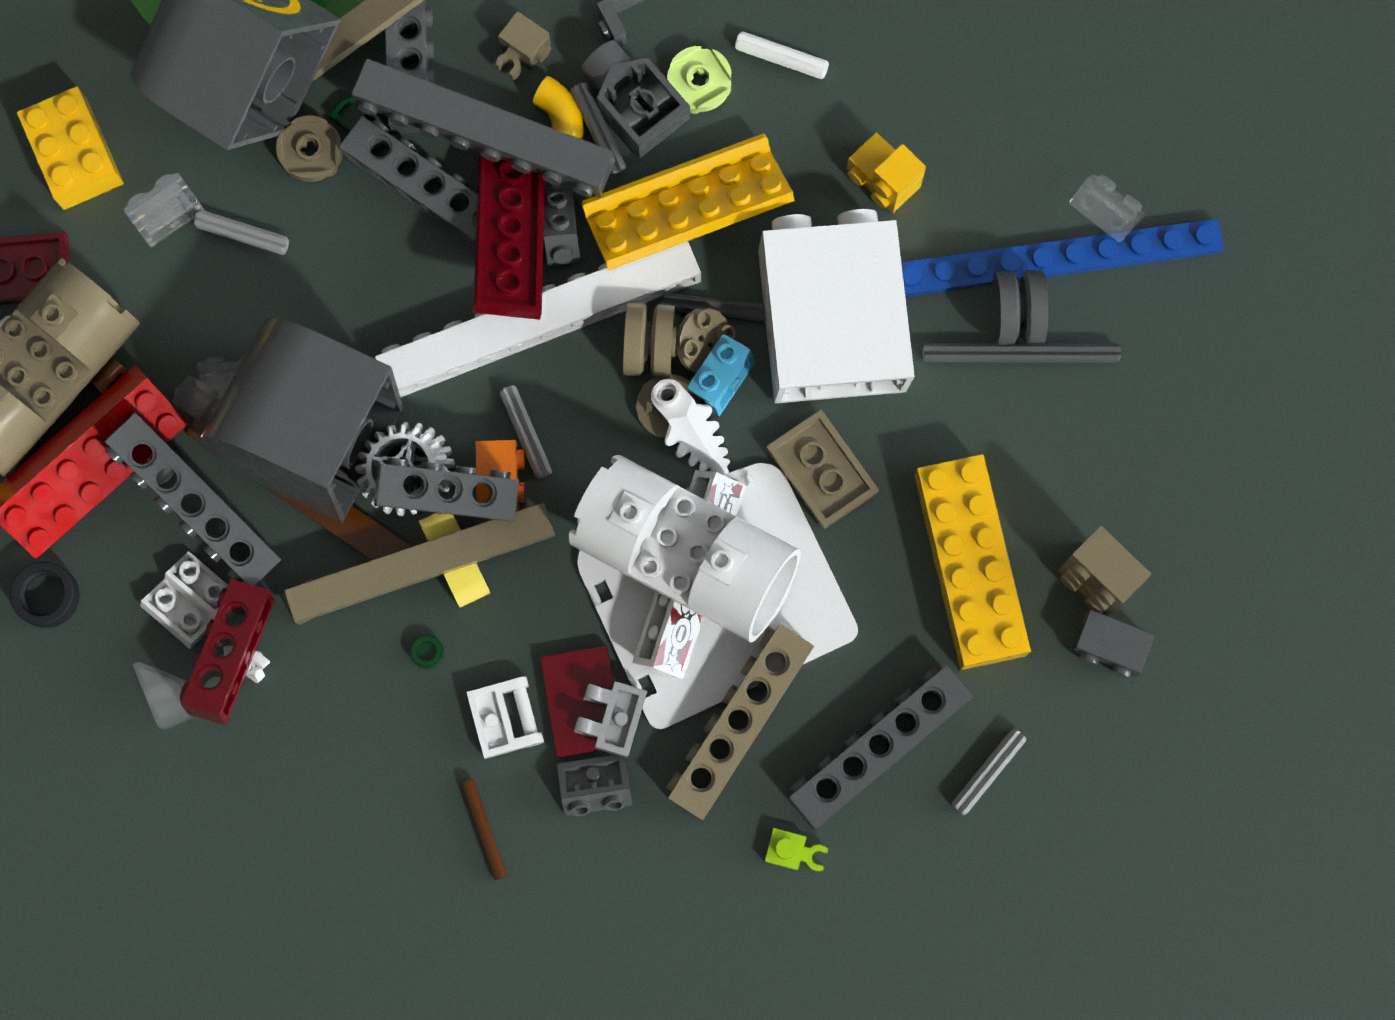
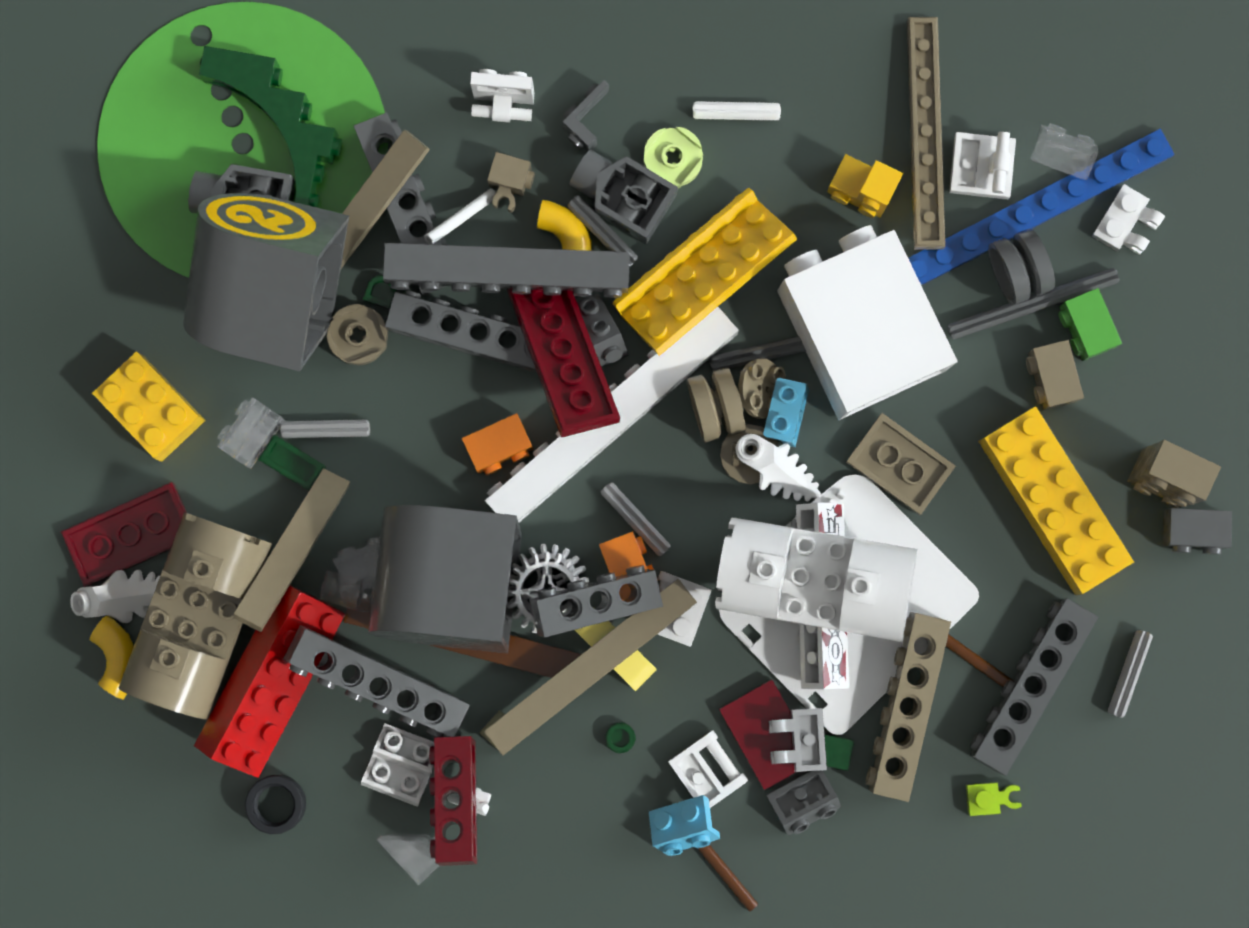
camera: 20 degrees left, 5 degrees up
(156, 336) = (291, 550): none -> dark tan tile
(195, 255) = (291, 462): none -> dark green tile
(411, 306) = (498, 444): none -> orange brick
(456, 64) = (460, 217): none -> white piece
(456, 764) = (682, 826): none -> medium azure bracket
(538, 557) = (685, 626): none -> white plate
(648, 745) = (838, 752): none -> dark green tile
(828, 700) = (976, 661): none -> reddish brown bar
(969, 142) = (925, 133): none -> dark tan tile
(1017, 193) = (982, 165): none -> white plate
(1017, 432) = (1054, 375): none -> dark tan brick
(1072, 393) = (1089, 325): none -> bright green brick
(1145, 296) = (1121, 217): none -> white plate

